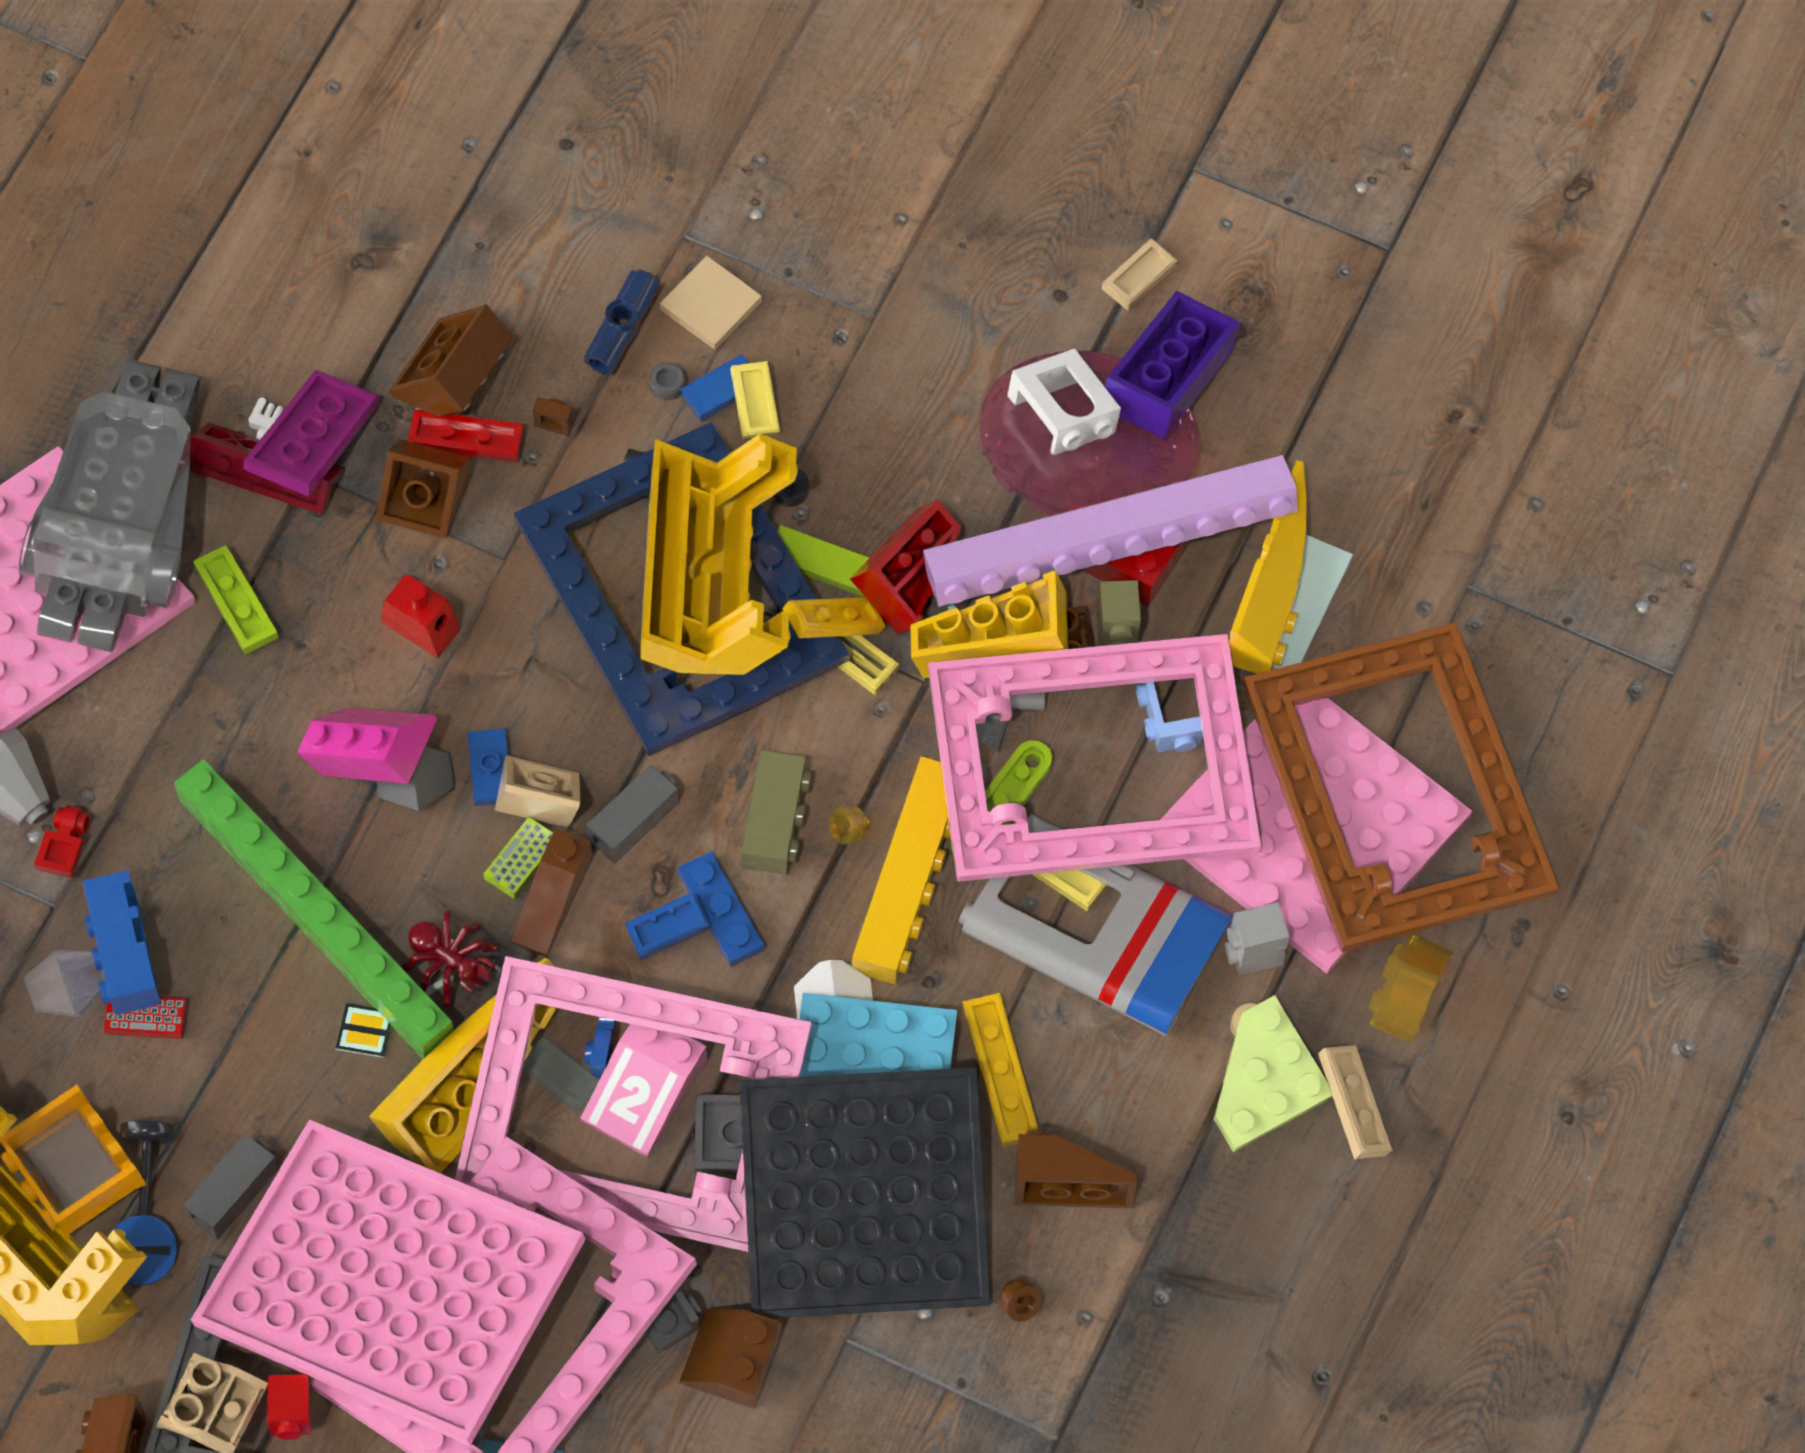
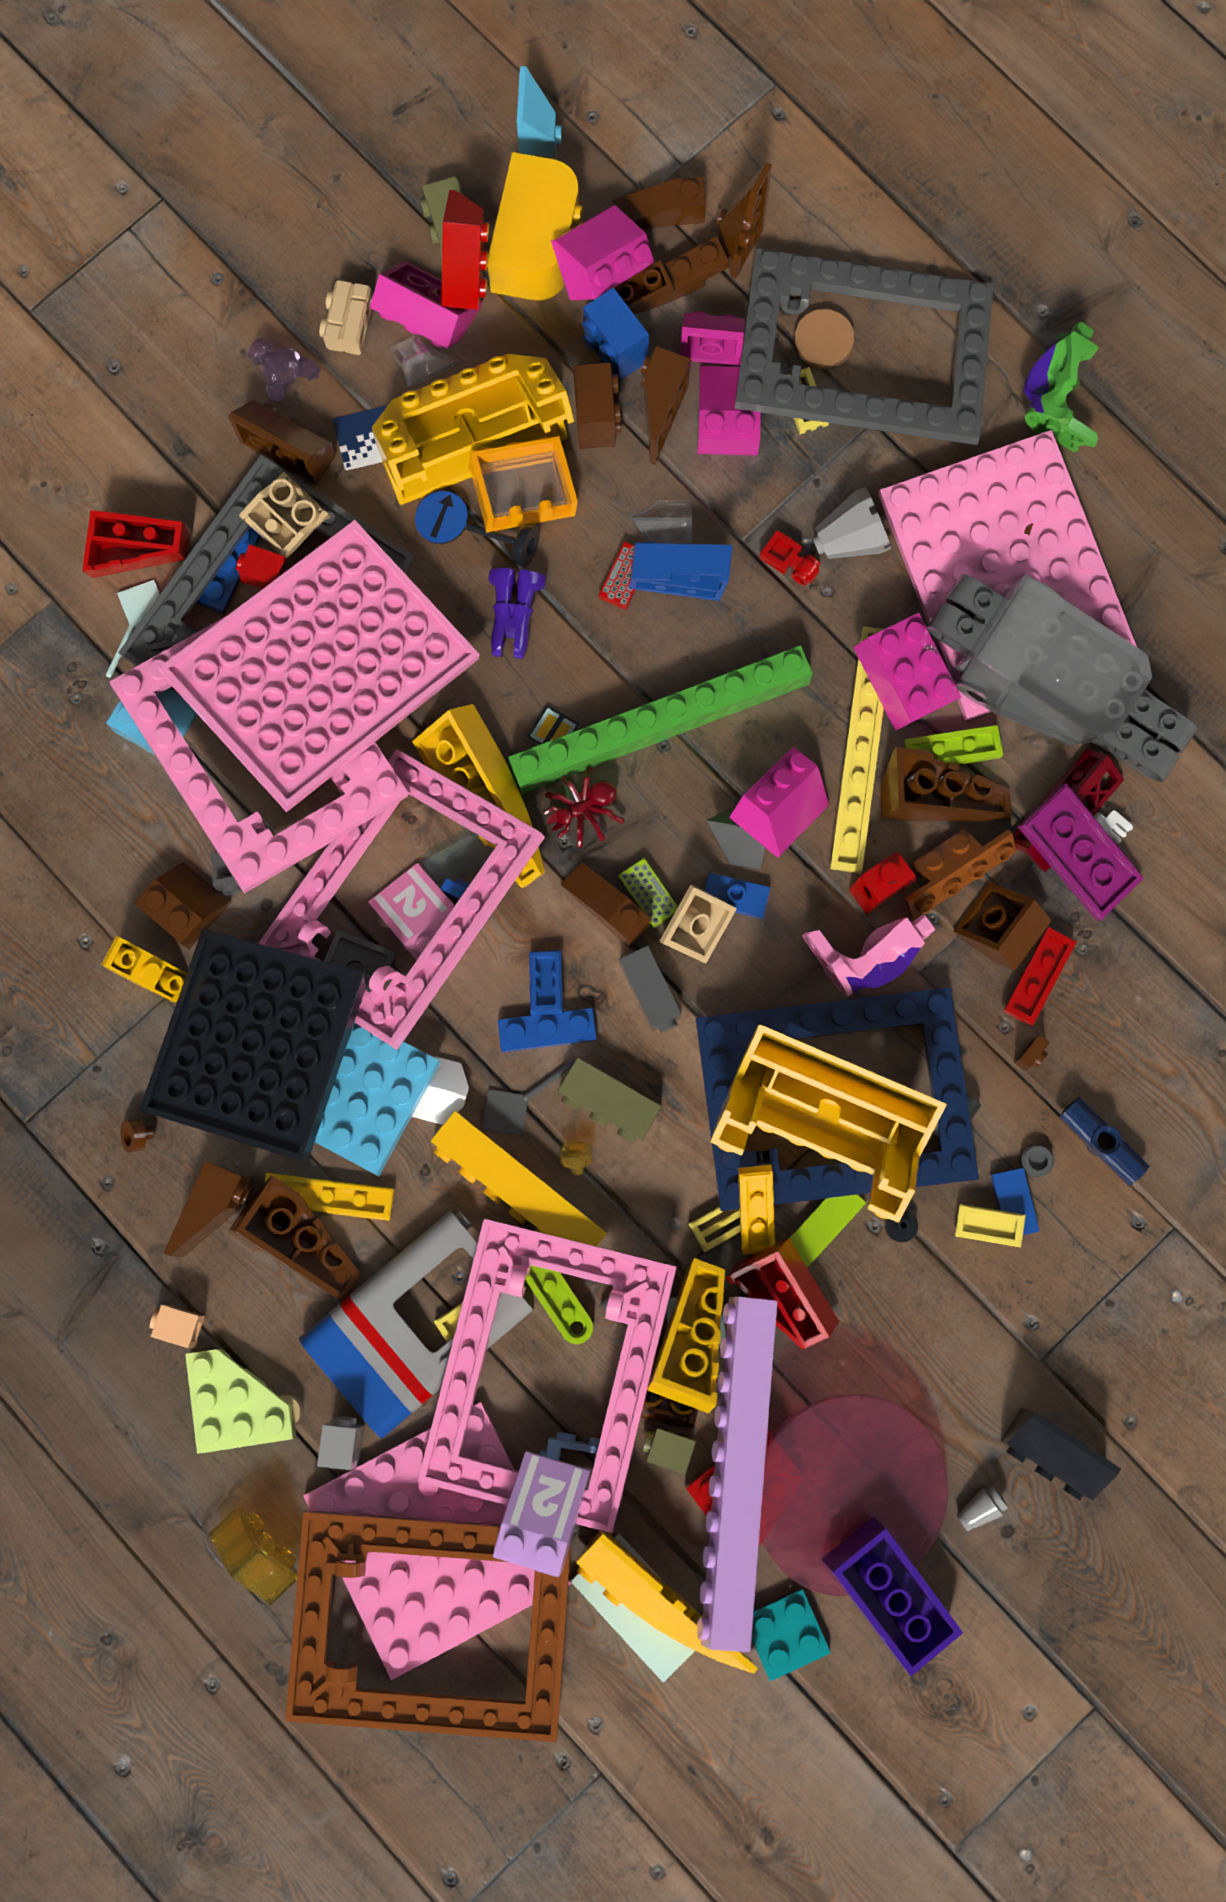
camera: 115 degrees right, 15 degrees up
(59, 1380) = (357, 438): none -> dark blue sticker
(166, 664) = (907, 671): none -> dark pink brick
(231, 1185) = (461, 592): dark grey brick -> none
(244, 1116) = (513, 619): none -> dark purple piece
(269, 691) = (858, 772): none -> light yellow plate
(290, 597) = (931, 790): none -> reddish brown wedge
(370, 558) = (954, 866): none -> dark orange bracket
(453, 362) = (1109, 986): reddish brown slope -> none
(509, 590) = (882, 958): none -> bright pink hips
(710, 302) = (1100, 1224): tan tile -> none
(825, 1360) = (144, 969): none -> yellow slope
(826, 920) = (507, 1111): none -> dark grey piece
(964, 264) = (1058, 1455): none -> black slope
(1039, 379) = (851, 1470): white panel -> none
(1047, 319) = (983, 1508): none -> light grey cone
(1061, 1077) = (289, 1232): none -> reddish brown wedge
(1139, 274) = (1003, 1610): tan tile -> none
(1209, 1167) = (176, 1325): none -> light nougat brick
(1238, 701) = (542, 1514): none -> lavender slope
(1249, 443) = (787, 1635): none -> teal plate
(1355, 1102) = (184, 1467): tan tile -> none

